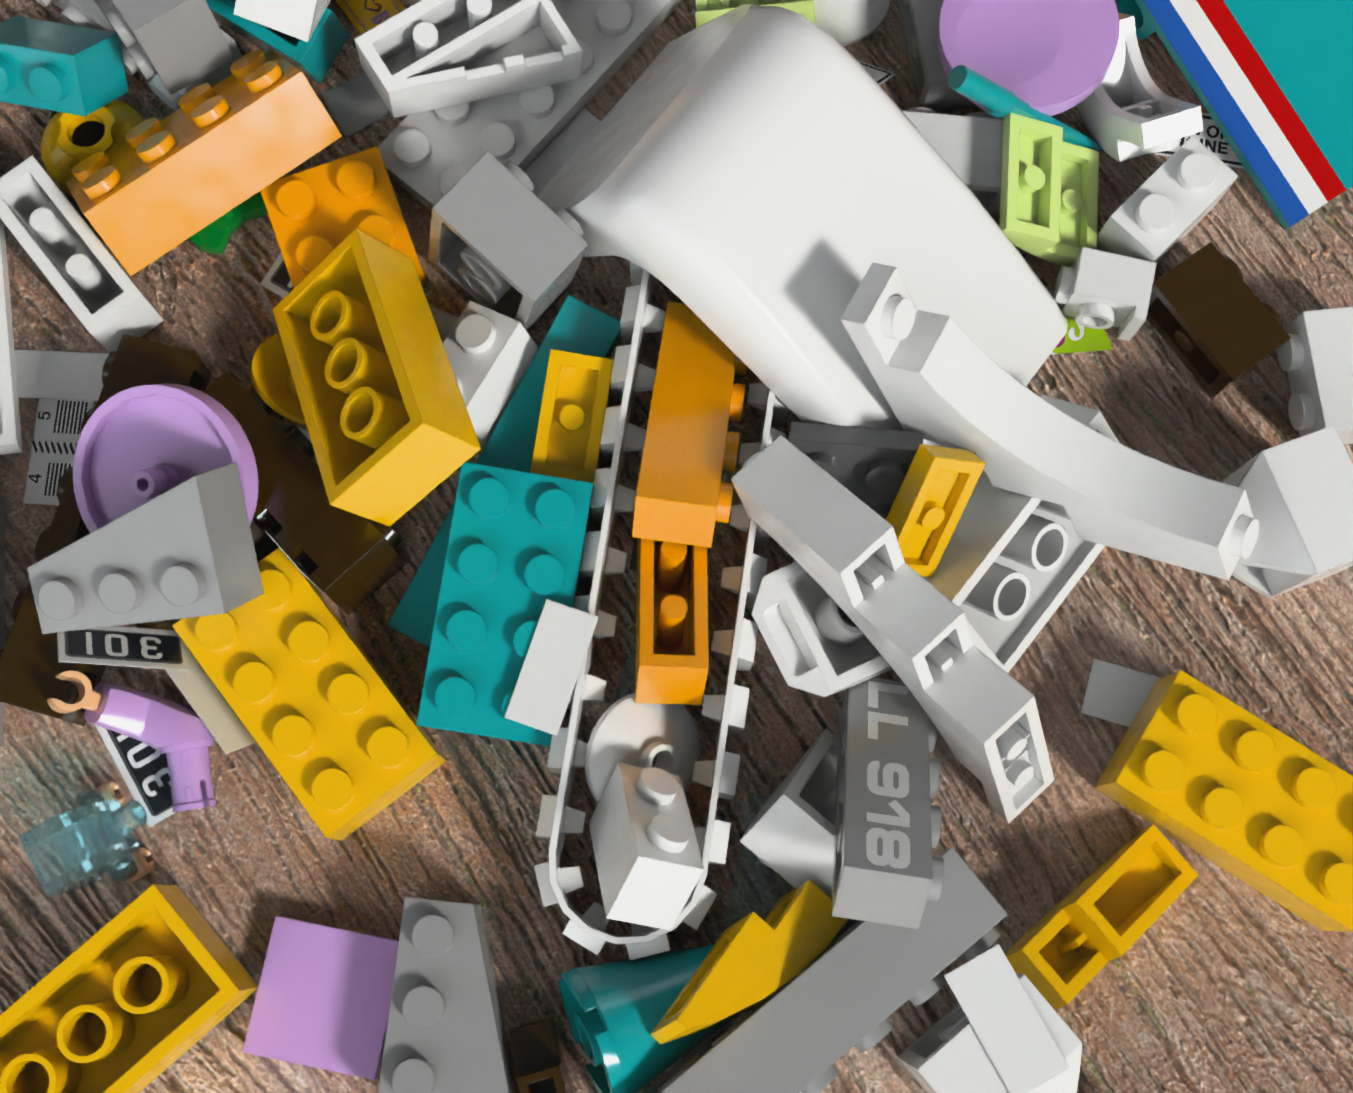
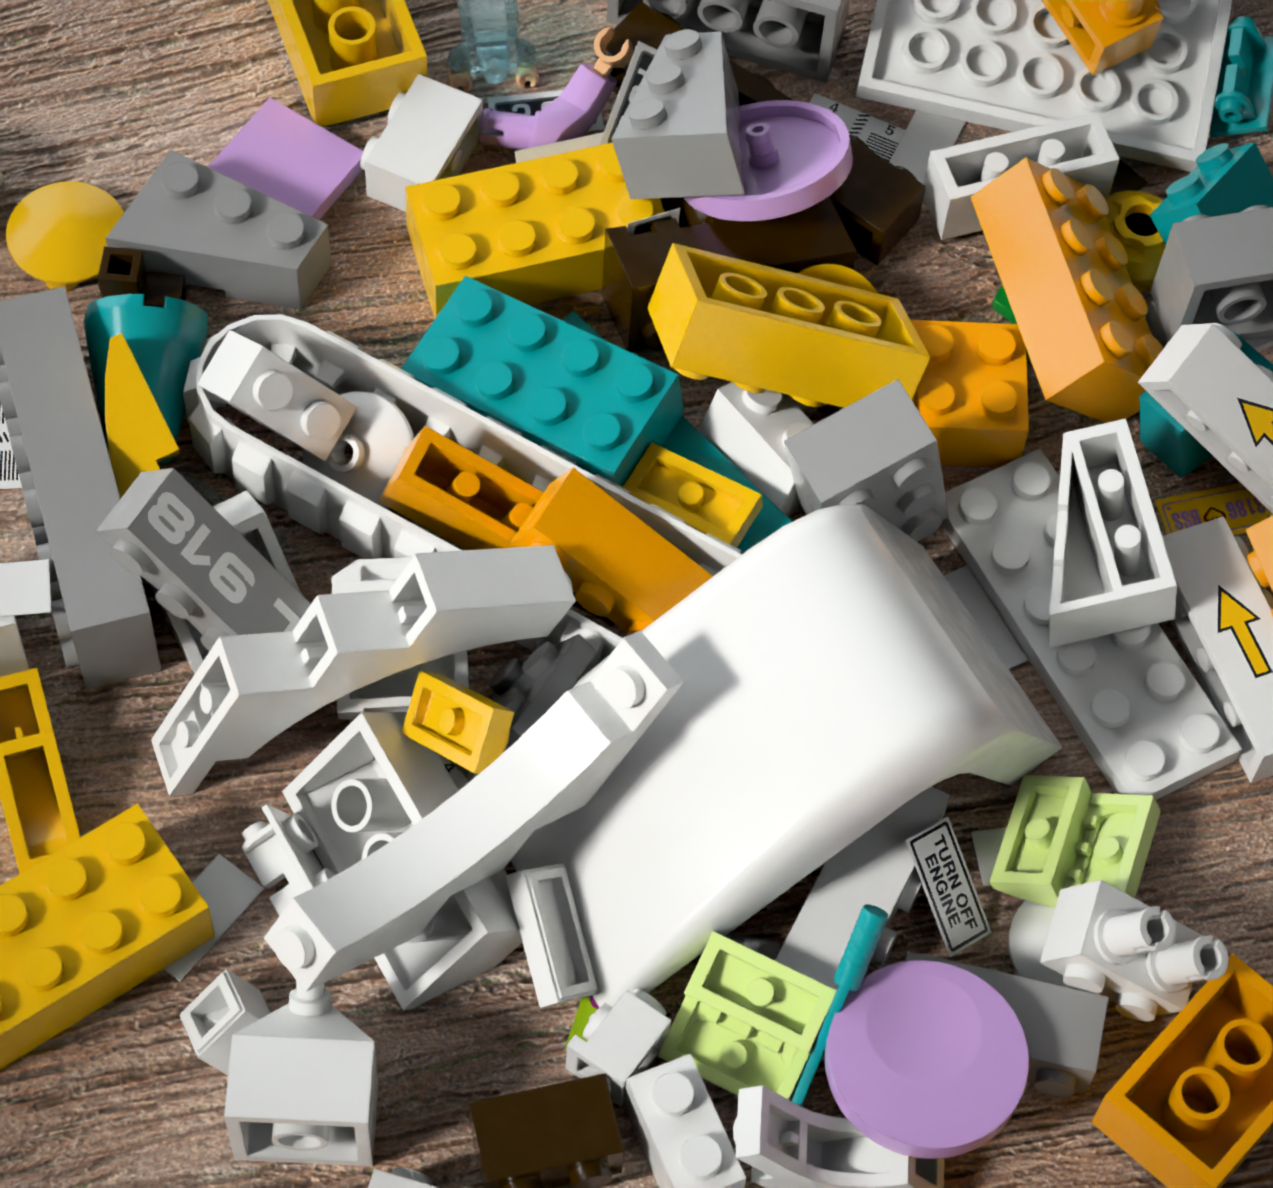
camera: 110 degrees right, 15 degrees down
(246, 856) = (425, 140): none -> white brick
(551, 667) = (462, 380): white sticker -> none
(1062, 367) = (551, 934): none -> white tile
(1093, 603) = (282, 852): none -> white hinge
(1237, 625) = (220, 1012): none -> white slope

